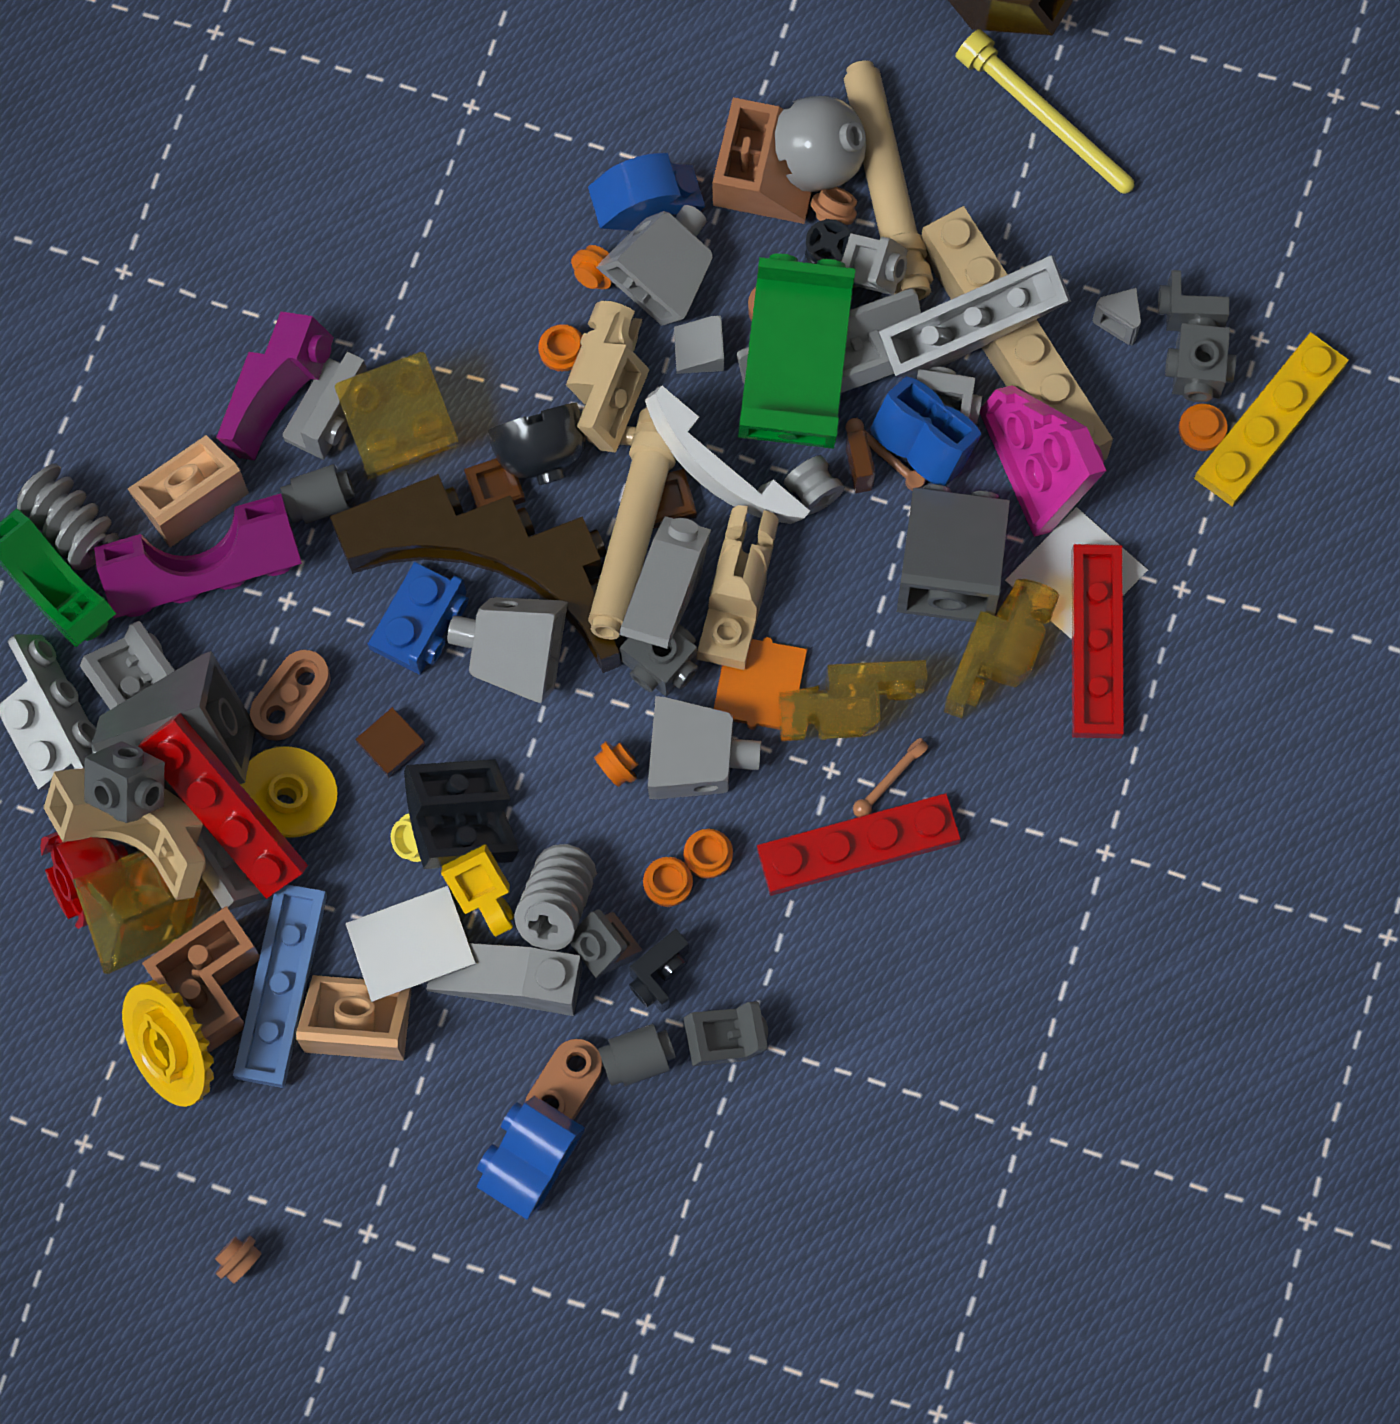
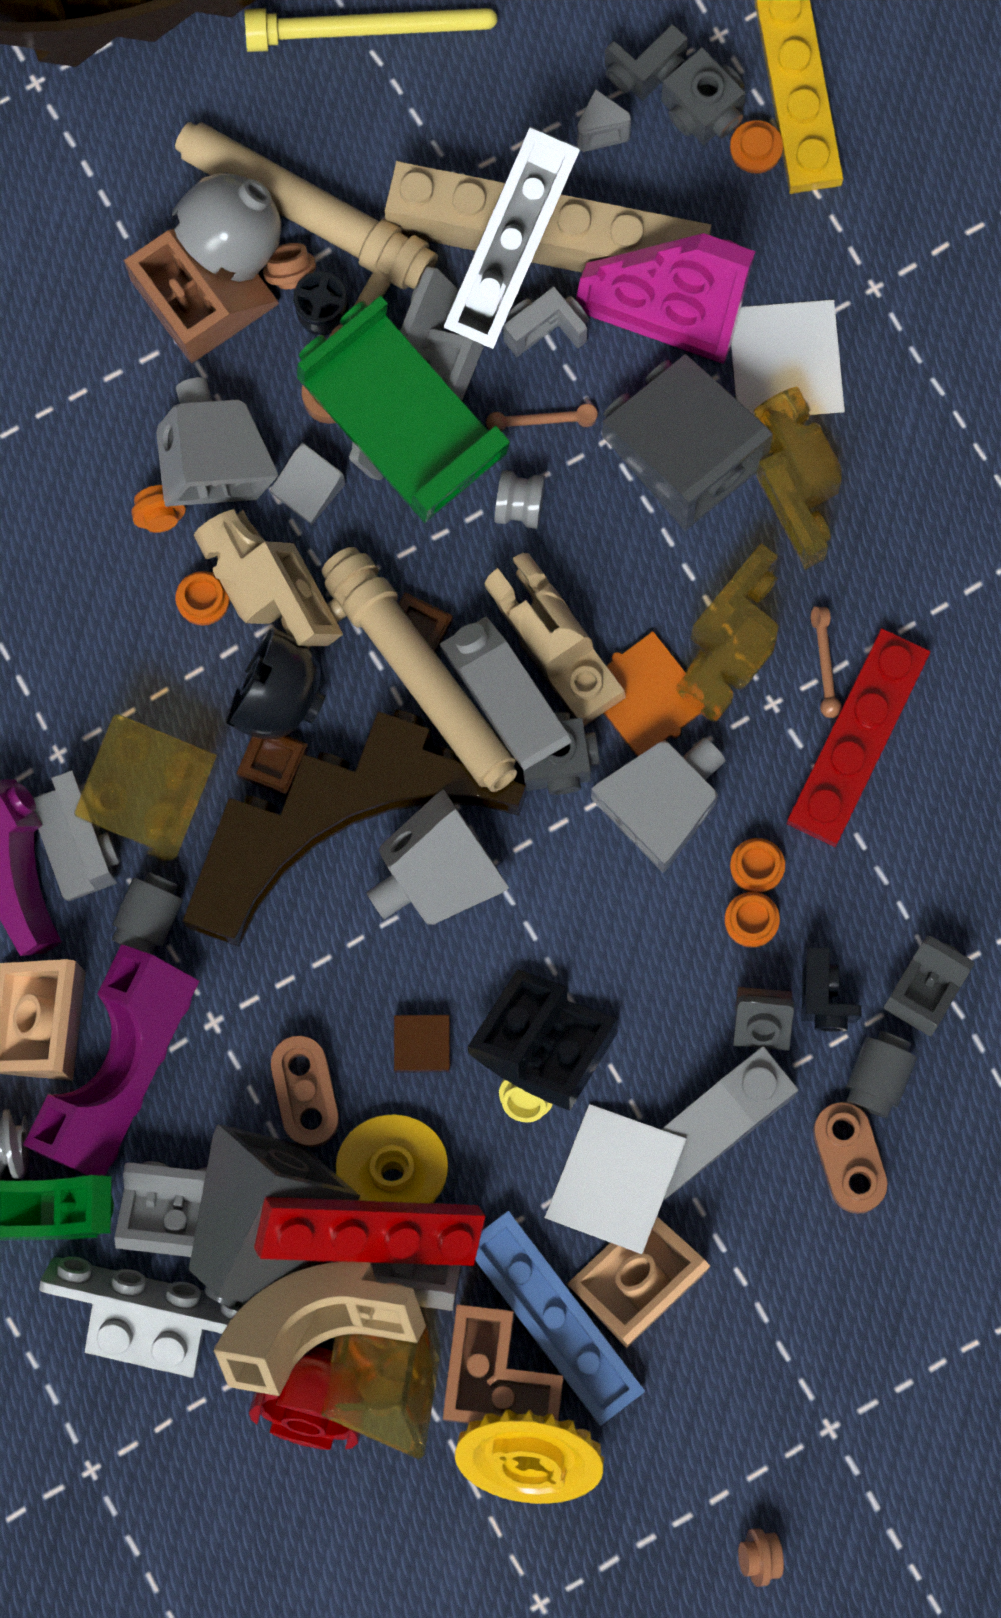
camera: 45 degrees left, 5 degrees up
(124, 782) = (285, 1296): dark grey brick -> none
(418, 618) = (333, 925): blue bracket -> none
(480, 884) = (624, 1074): yellow plate -> none
(529, 1156) = (891, 1237): blue brick -> none
(555, 897) = (691, 1023): light grey piece -> none
(617, 763) = (614, 872): orange plate -> none
(642, 189) = (130, 409): blue brick -> none
(673, 422) = (375, 564): white slope -> none
(860, 461) = (534, 444): reddish brown tile -> none
(877, 262) = (381, 272): light grey bracket -> none
(925, 431) = (561, 368): blue brick -> none
(1097, 641) = (863, 393): red plate -> none

